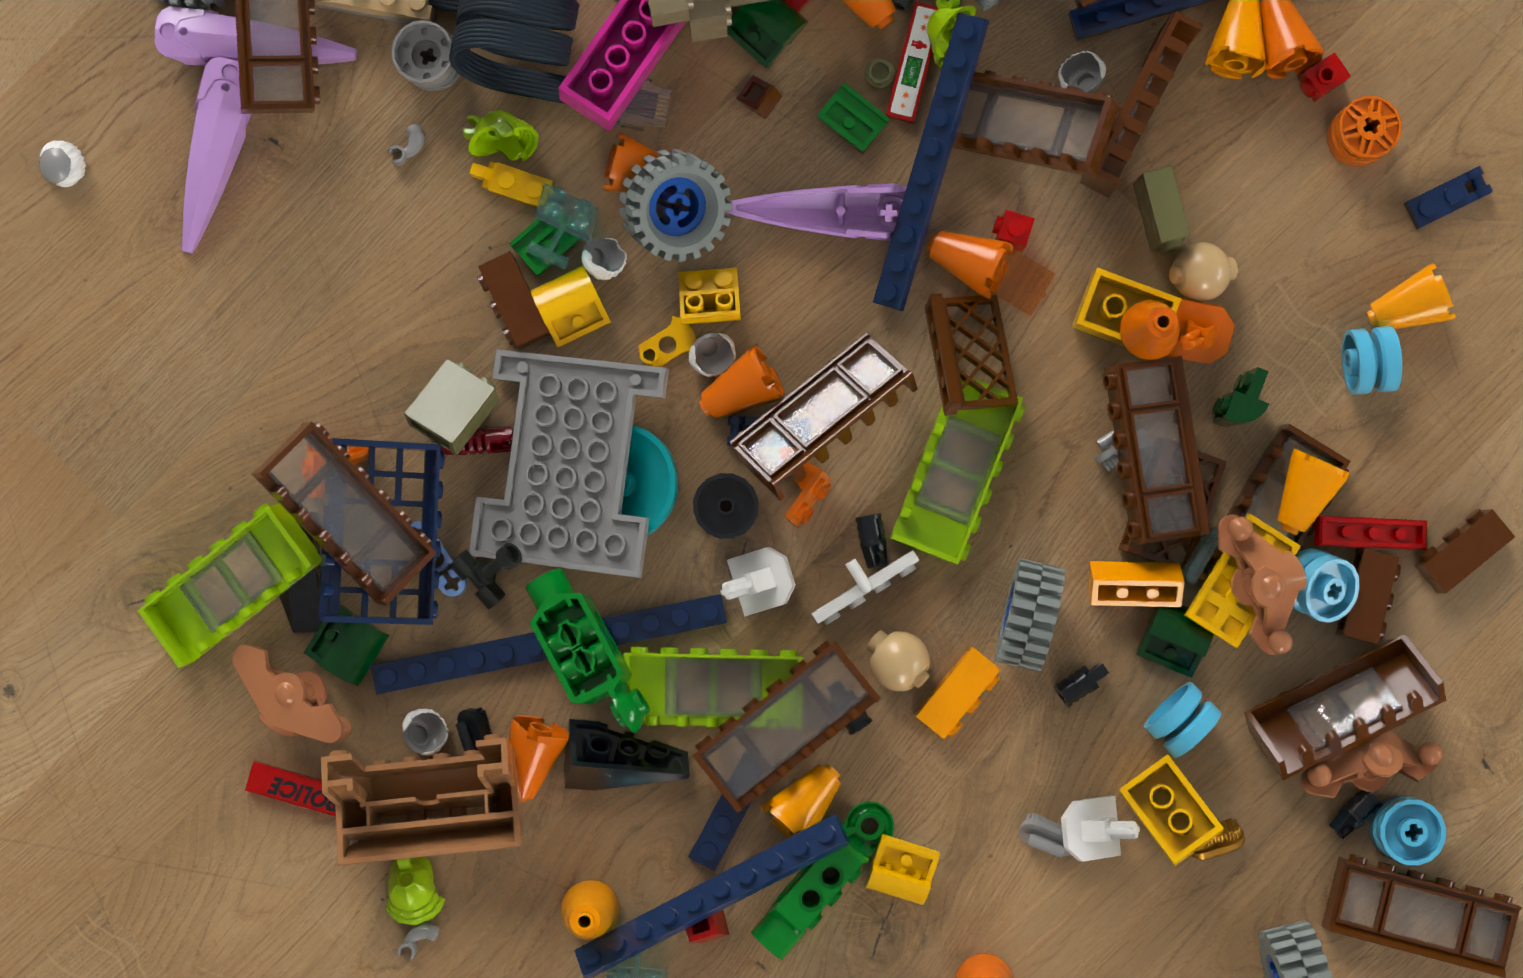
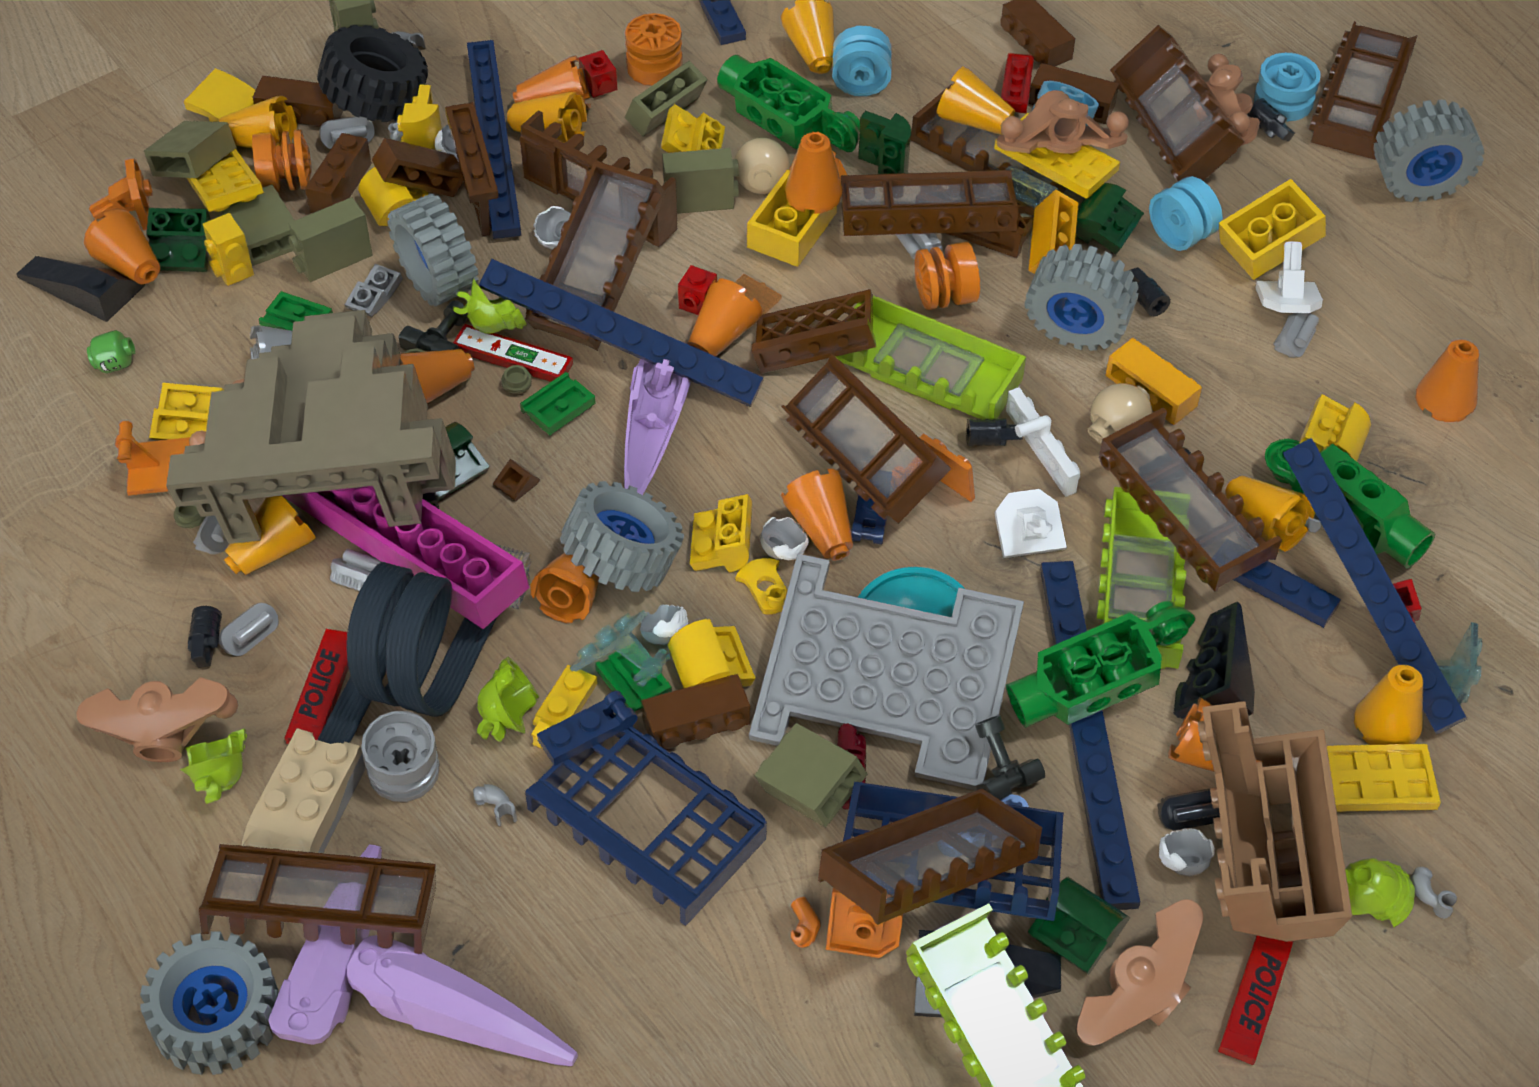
camera: 85 degrees left, 35 degrees down
(328, 421) = (808, 923): none -> orange arm
(367, 249) = (637, 862): none -> dark blue window
(469, 207) = (586, 728): none -> dark blue plate
(524, 892) = (1383, 777): none -> yellow plate
(734, 490) = (949, 538): black wheel -> none
(1059, 478) = (947, 275): none -> orange wheel
(1230, 194) = (688, 133): none -> yellow brick
(1288, 156) = (652, 106): none -> olive brick
(1299, 283) = (786, 103): none -> green brick

